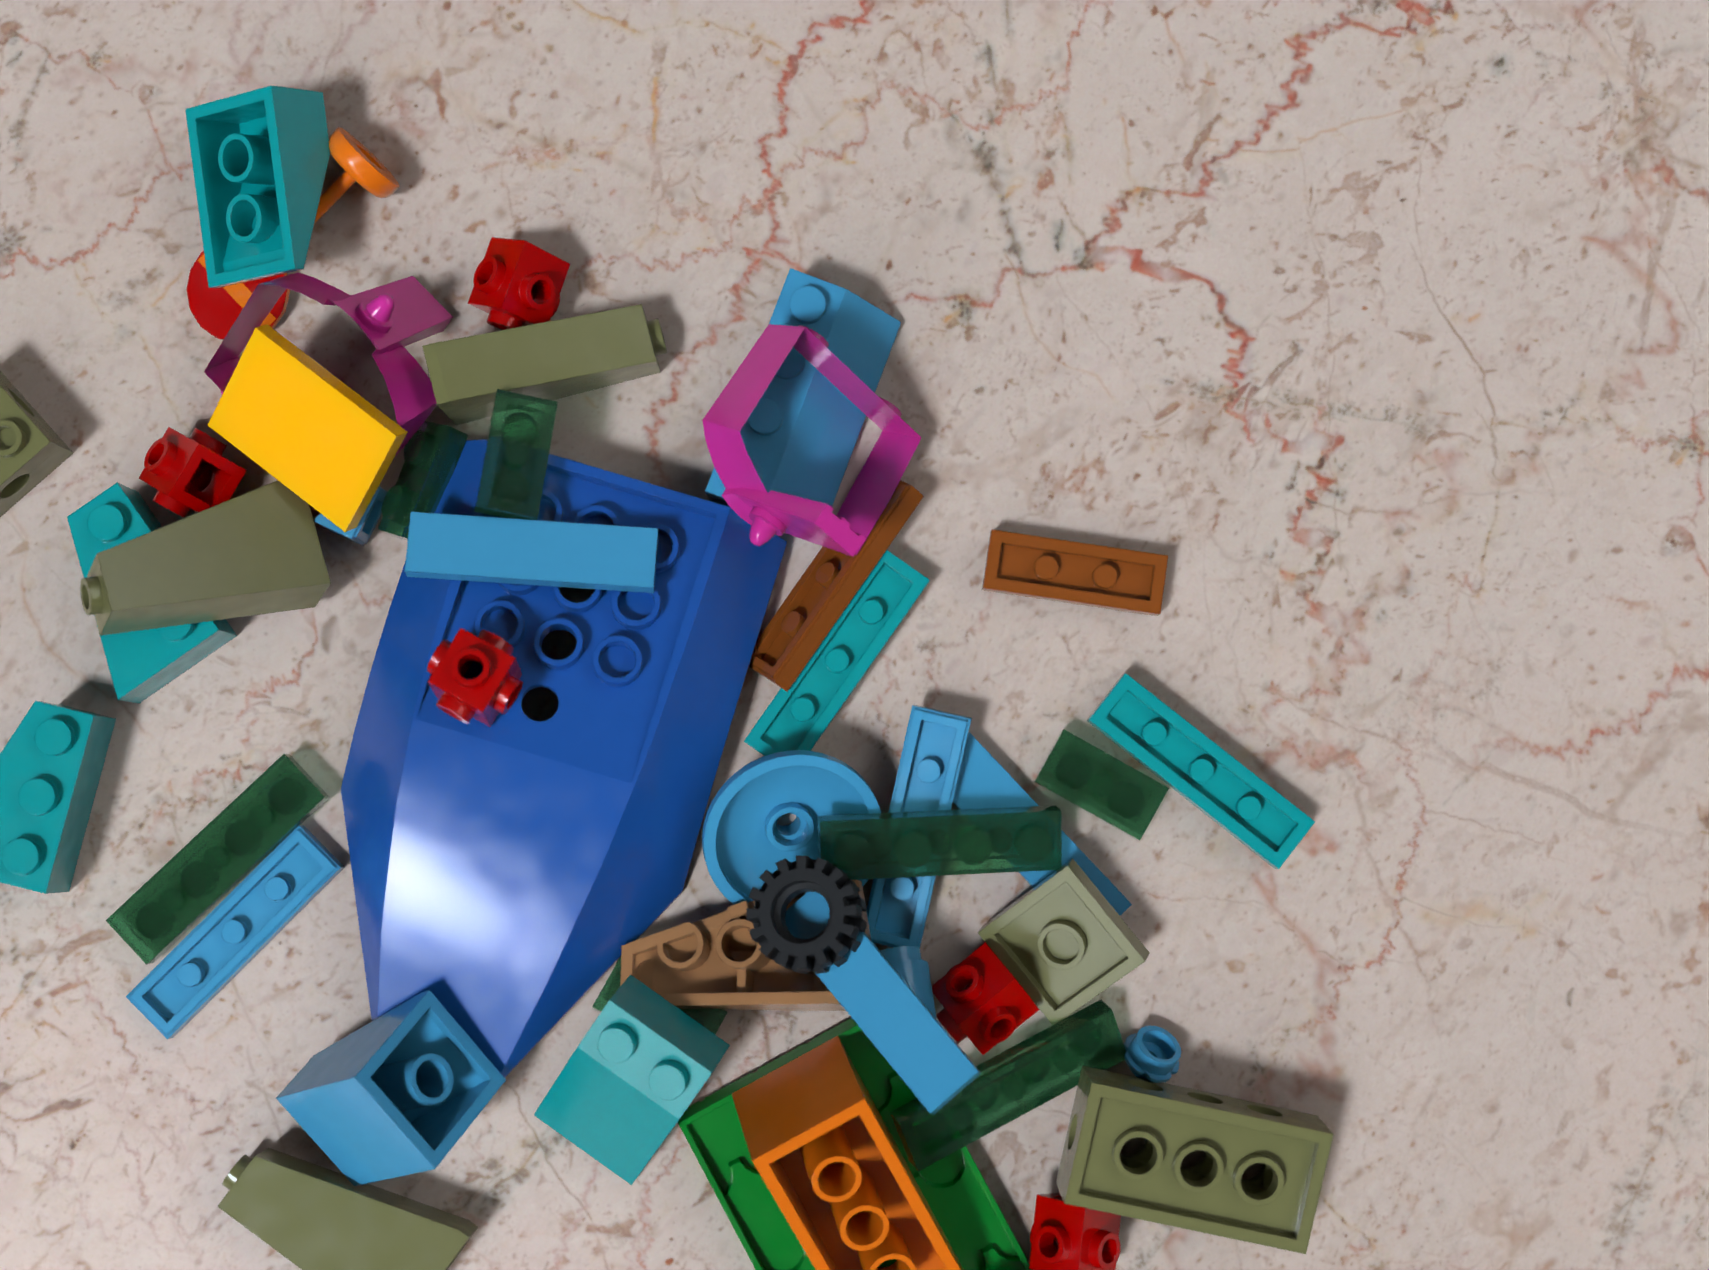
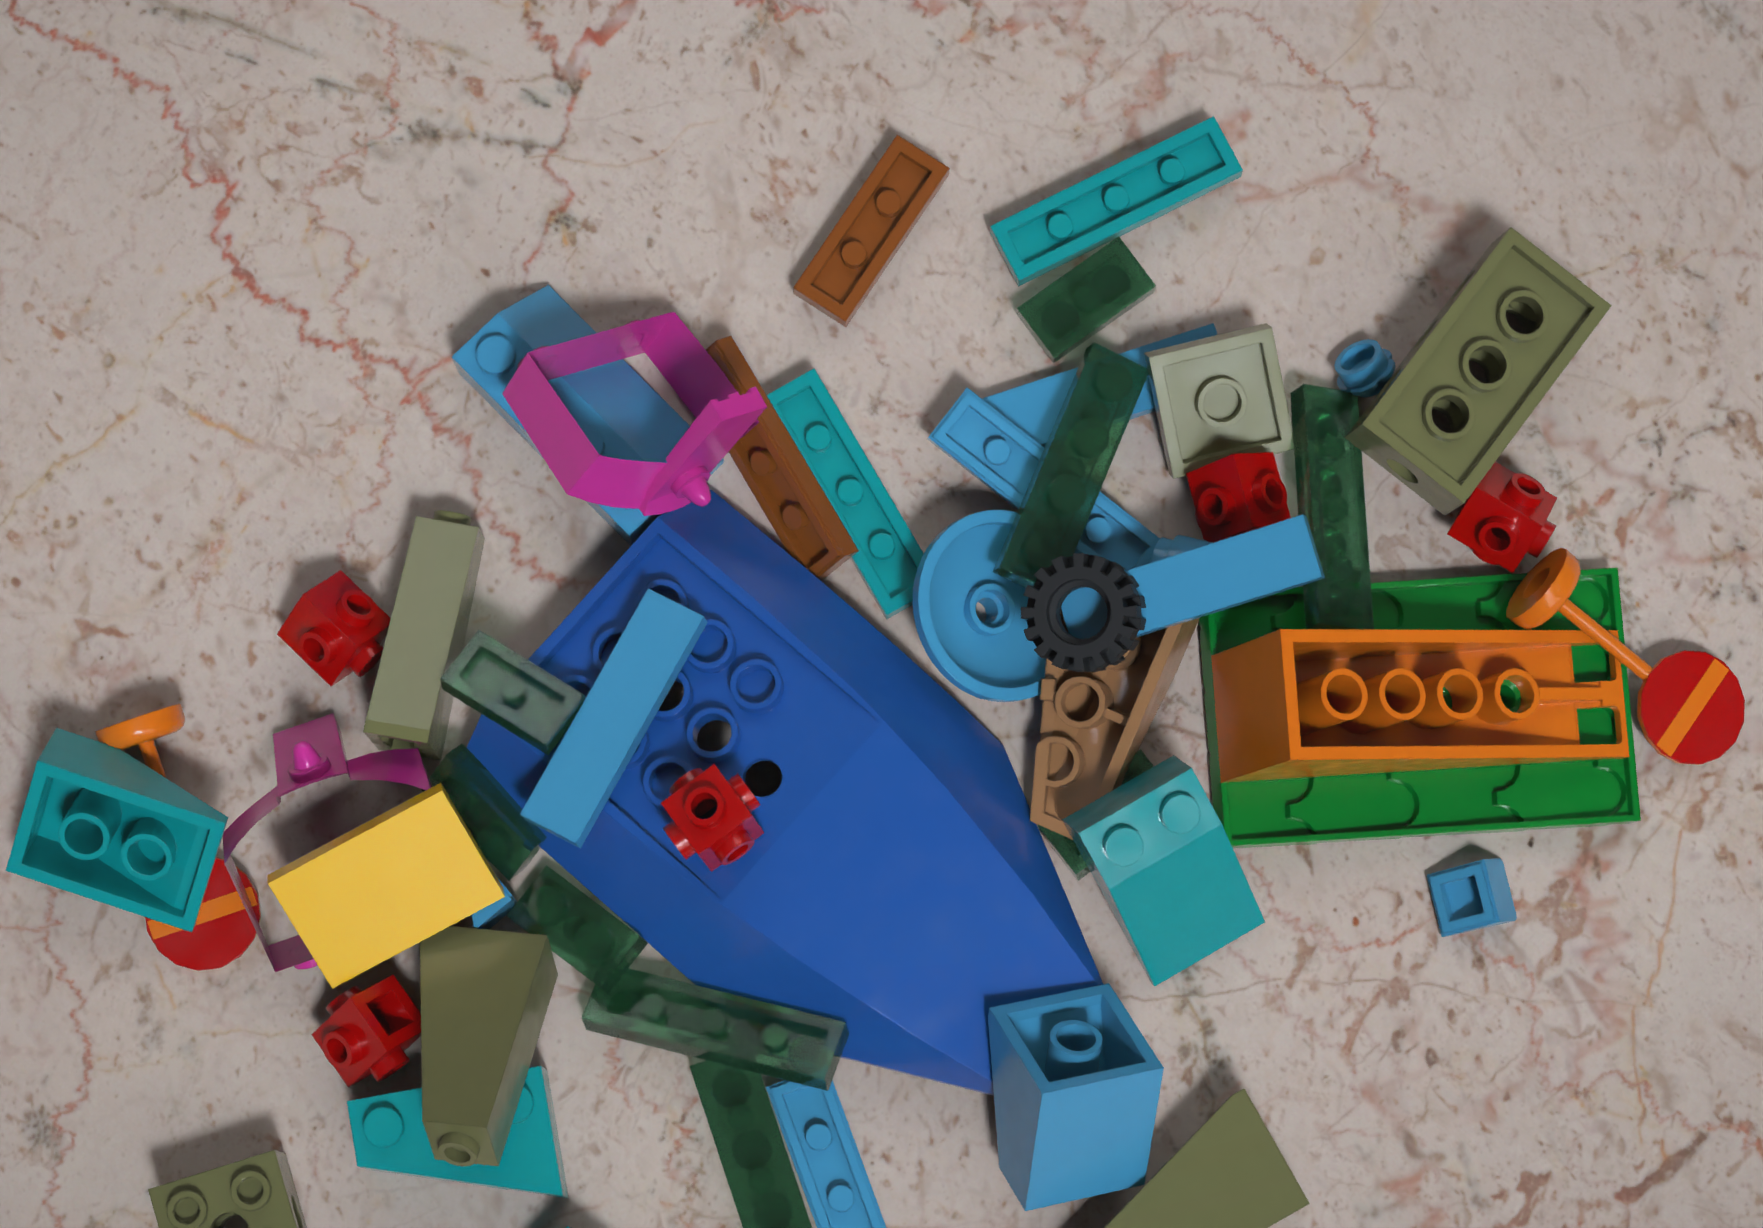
camera: 60 degrees left, 5 degrees down
(323, 761) = (719, 1028): none -> clear green plate
(357, 605) = (578, 929): none -> clear green plate

